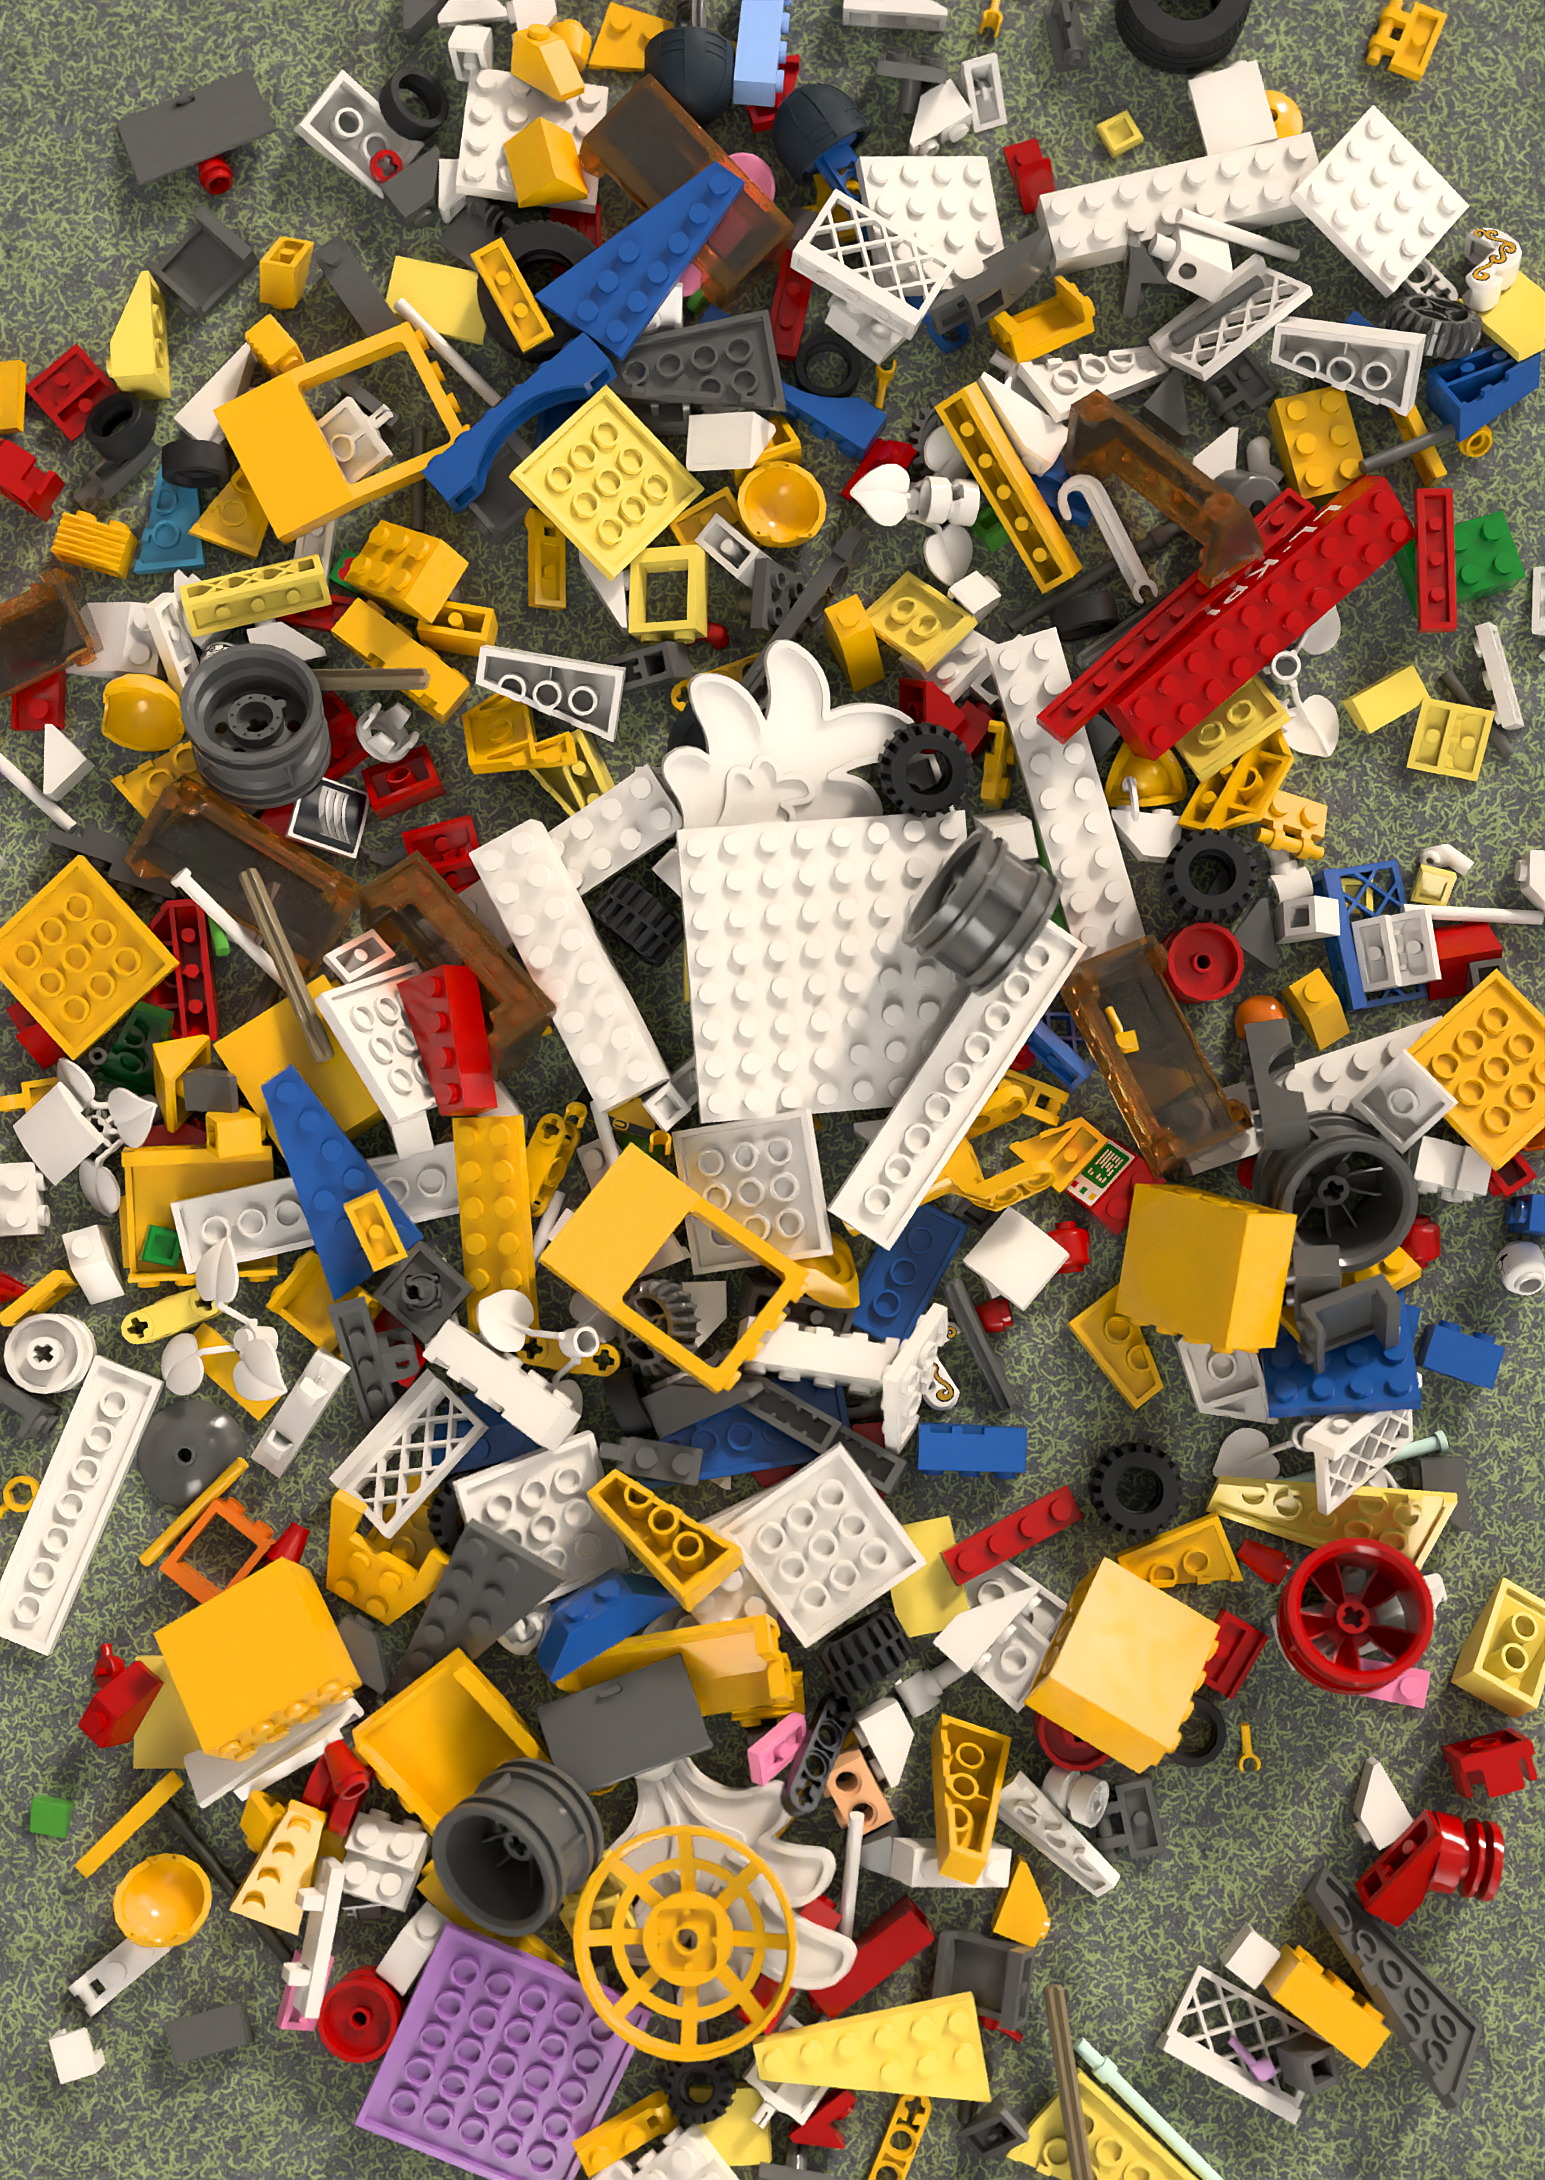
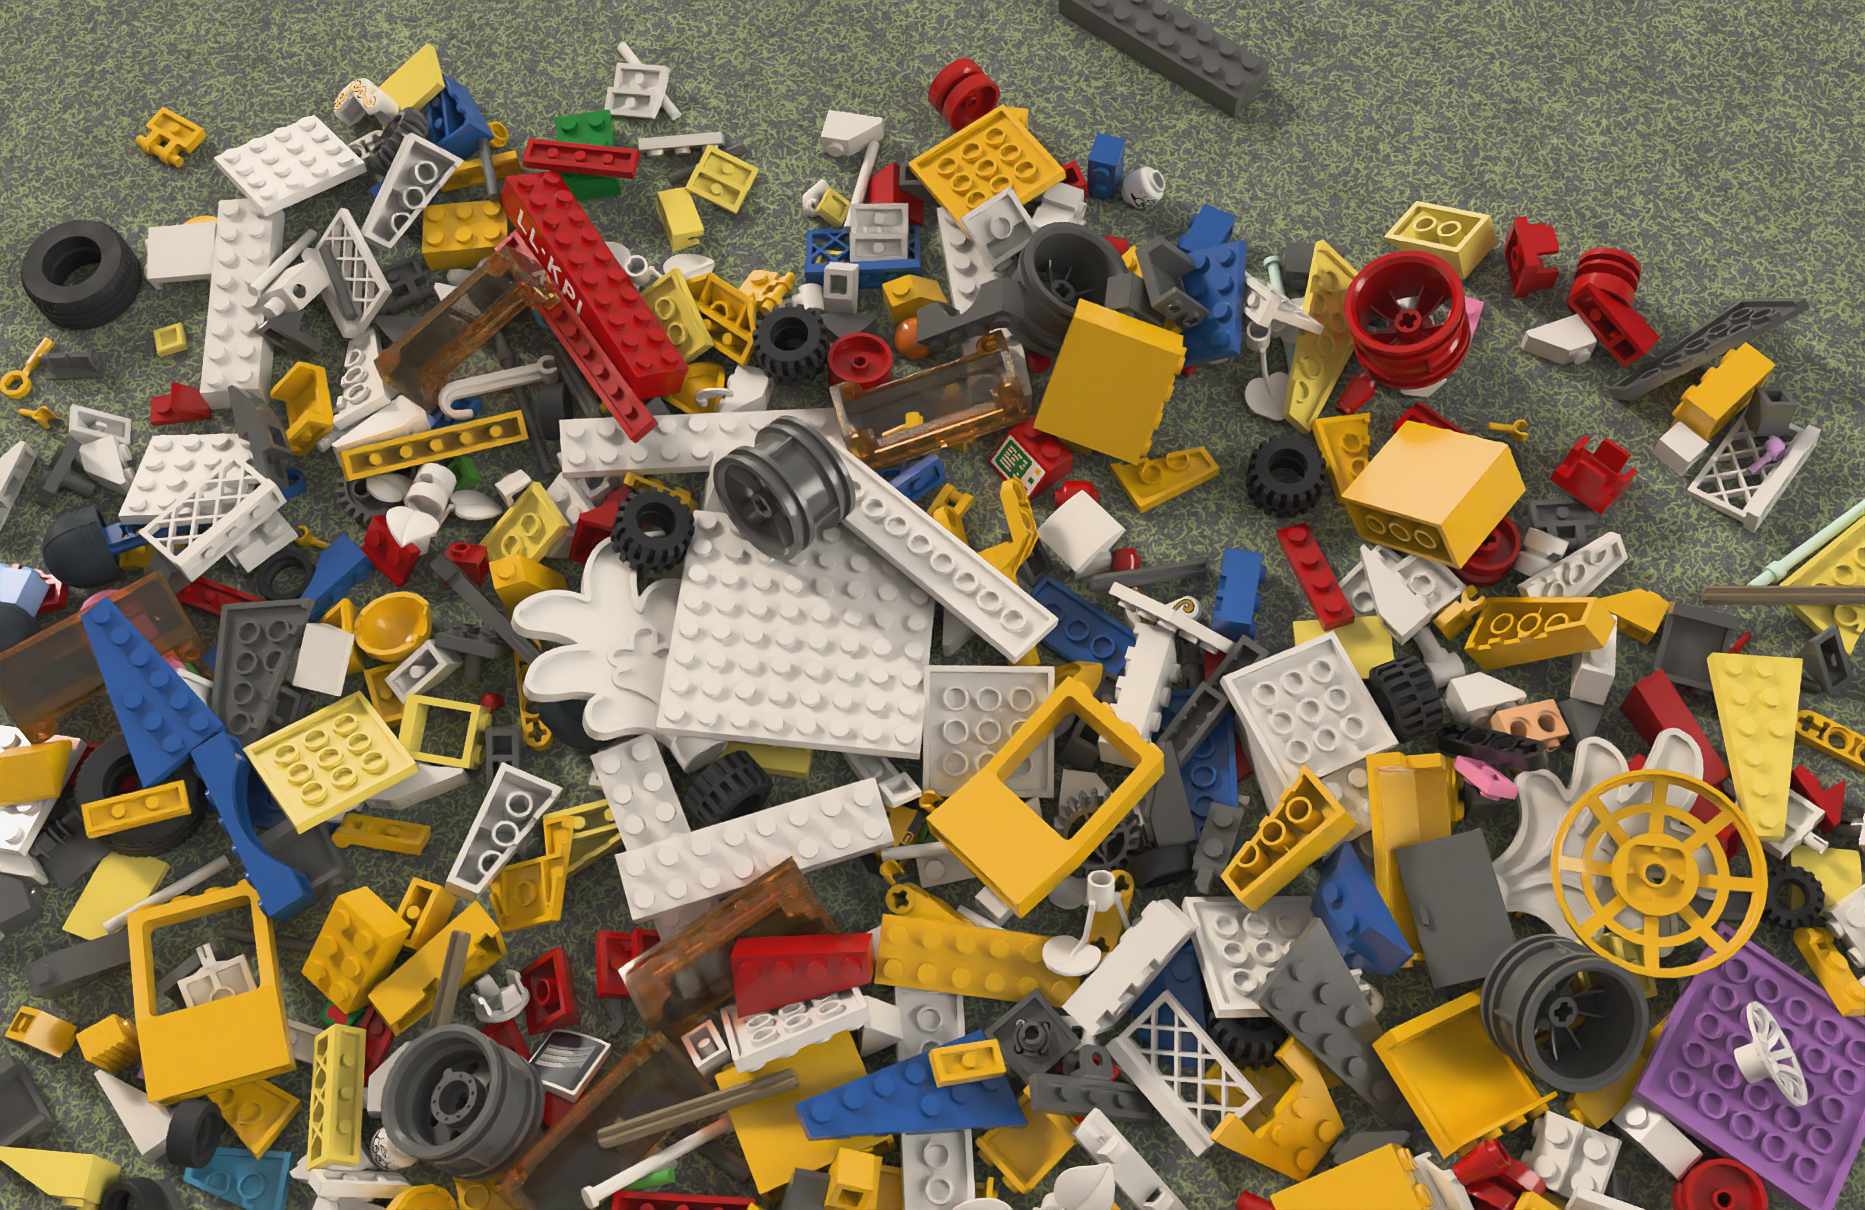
camera: 75 degrees left, 20 degrees down
(498, 2053) = (1759, 1063): none -> white wheel
(850, 1875) = (1584, 732): white bar -> none
(878, 566) = (470, 559): none -> red brick
(983, 1703) = (1458, 615): none -> yellow plate
(1066, 1148) = (987, 485): yellow wing -> none
(1193, 1854) = (1597, 476): none -> red panel
(1225, 1382) = (1201, 402): white wing -> none

